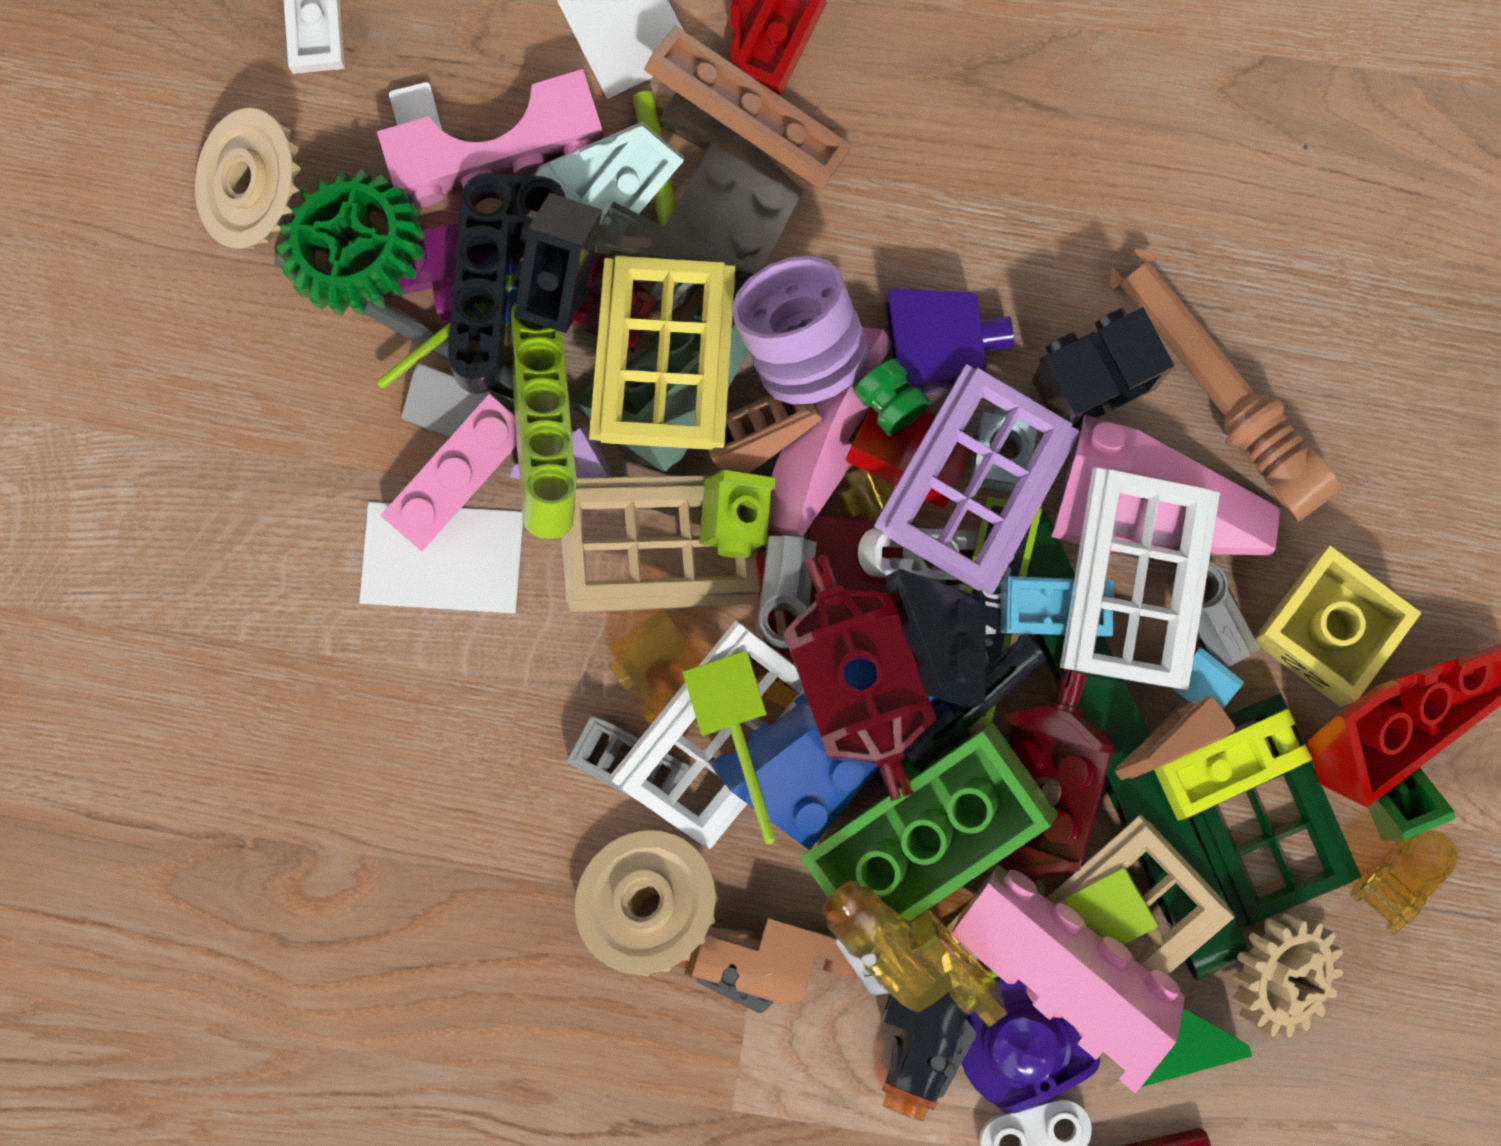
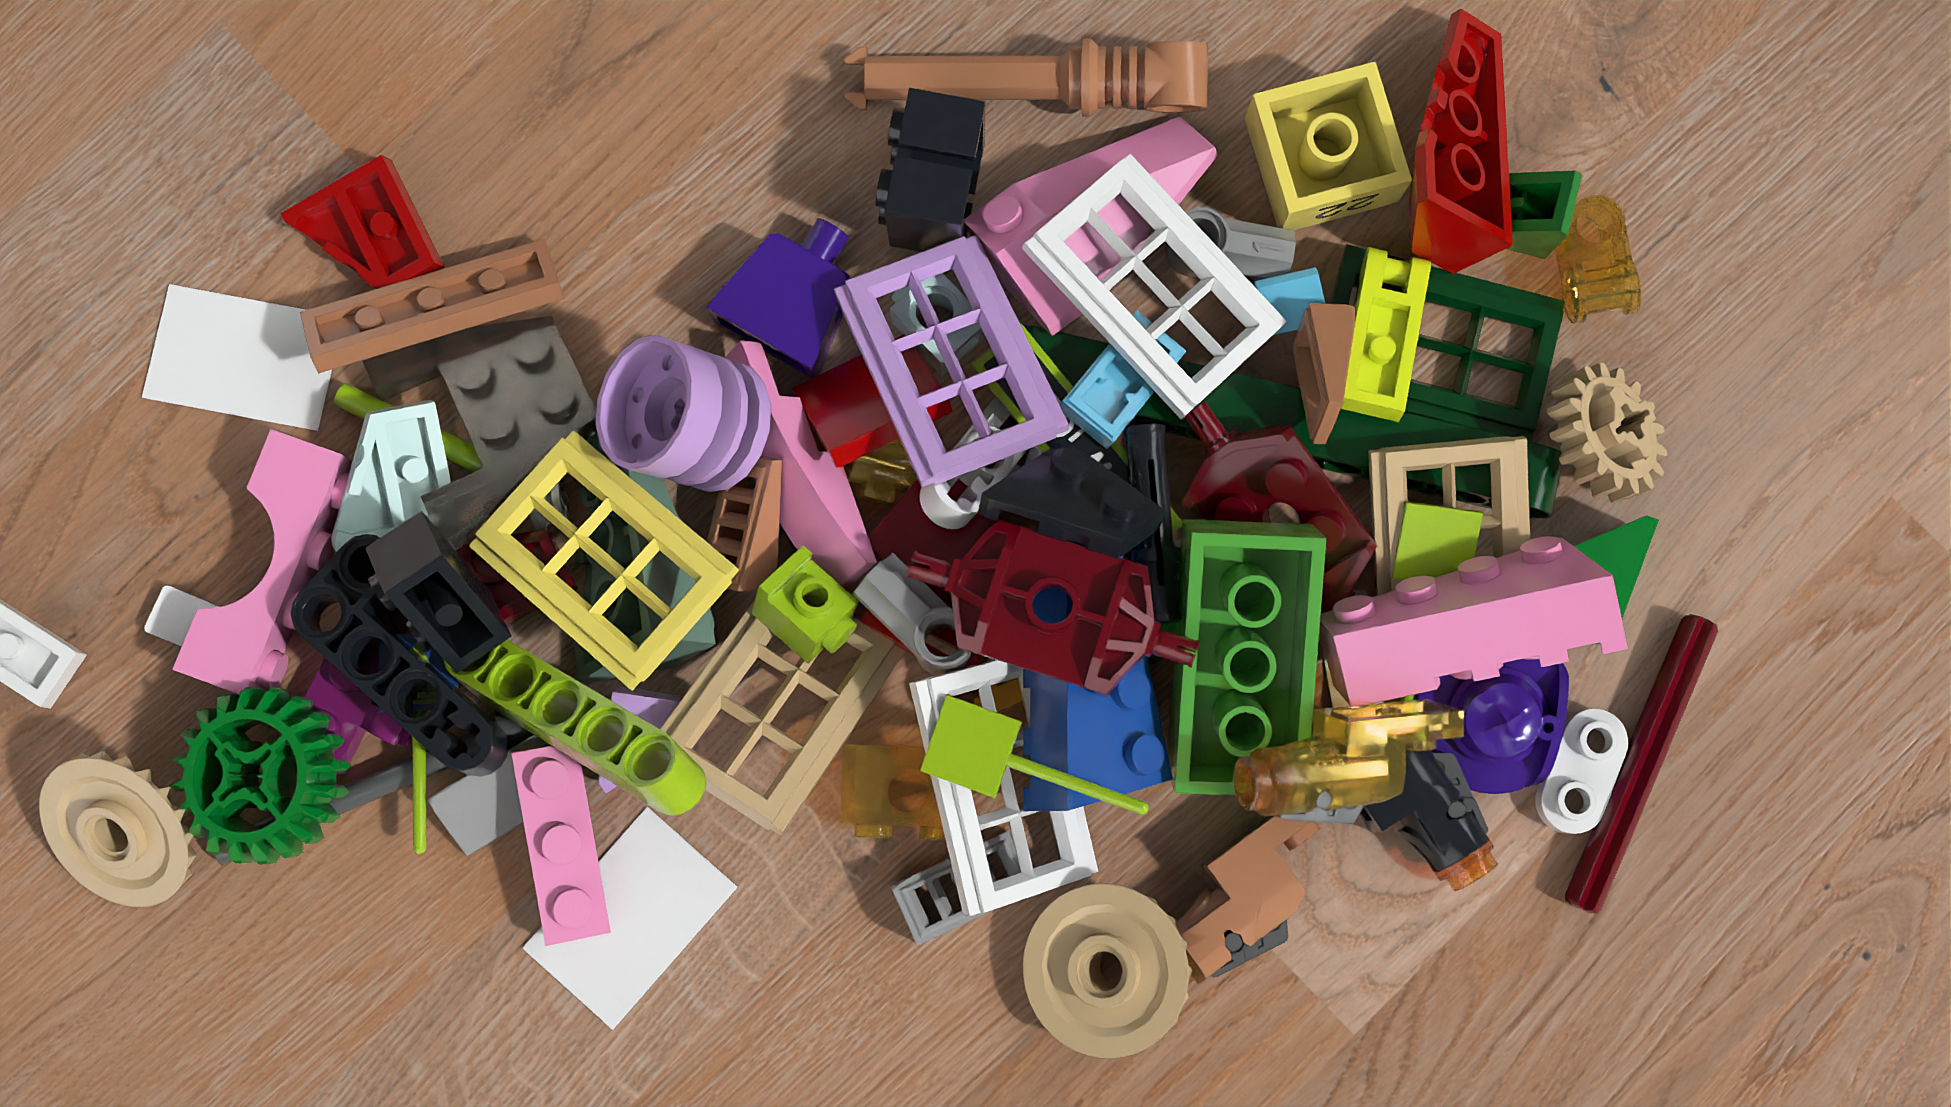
camera: 55 degrees left, 0 degrees up
(892, 397) = (811, 379): green wheel -> none

